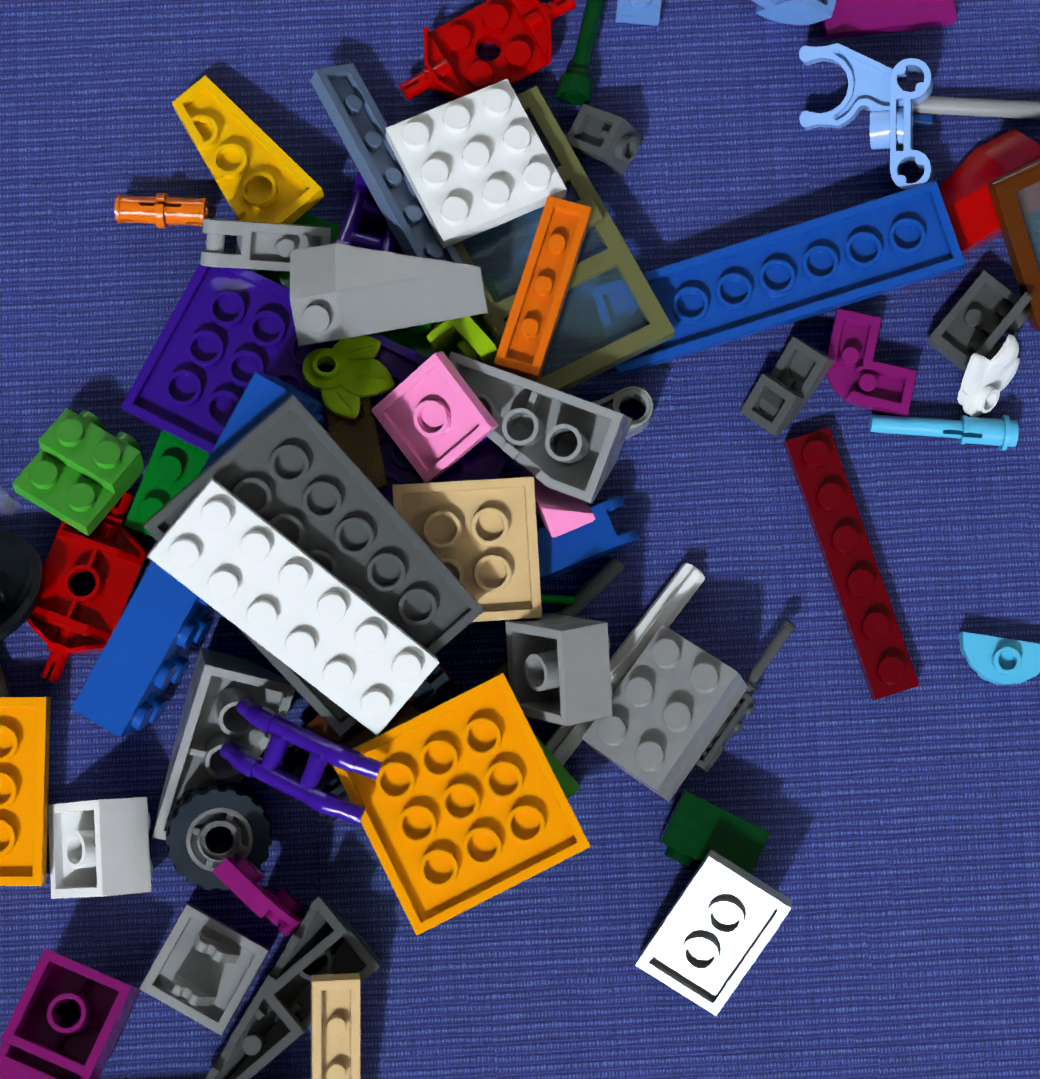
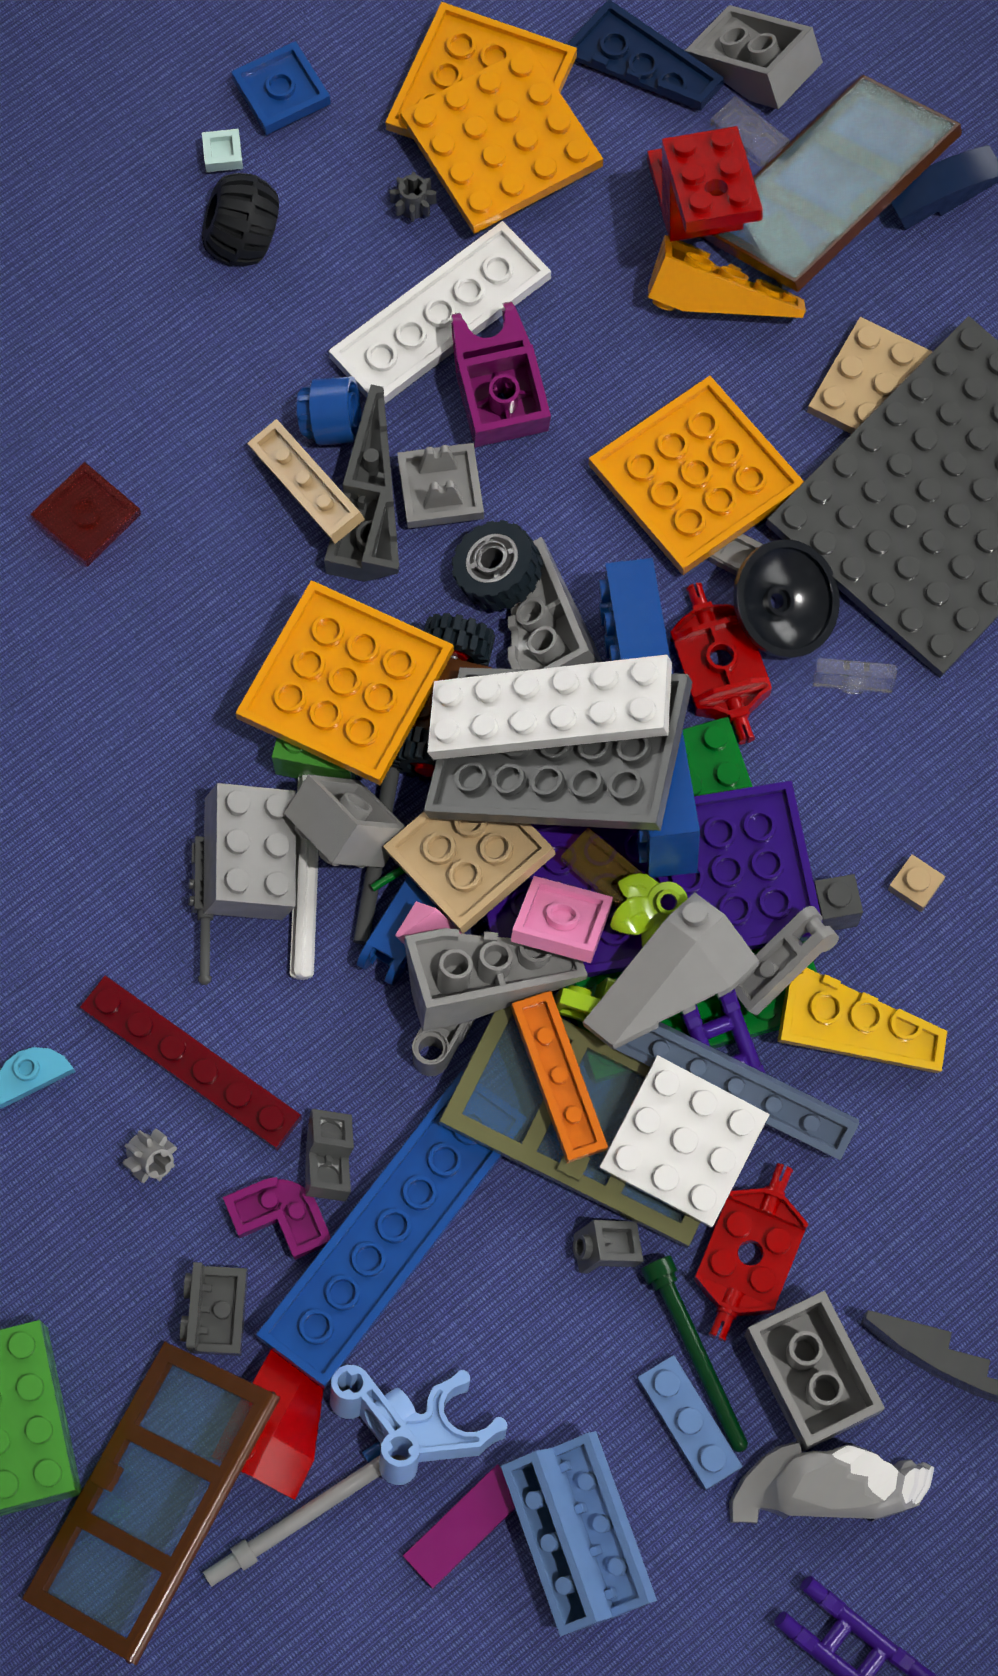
camera: 145 degrees right, 10 degrees down
(80, 470) = (786, 726): bright green plate -> none
(86, 253) = (916, 883): none -> tan plate
(99, 848) = (569, 506): white slope -> none
(161, 210) = (910, 936): orange pin -> none
(167, 275) = (839, 901): none -> dark grey brick
(243, 880) = (423, 547): magenta plate -> none
(321, 752) = (460, 640): dark purple piece -> none
(701, 827) = (156, 799): dark green brick -> none
(714, 932) = (112, 734): plate -> none
(948, 497) = (149, 1155): none -> light grey gear
(968, 430) = (168, 1224): medium azure pin -> none
(987, 377) = (179, 1256): white plate -> none

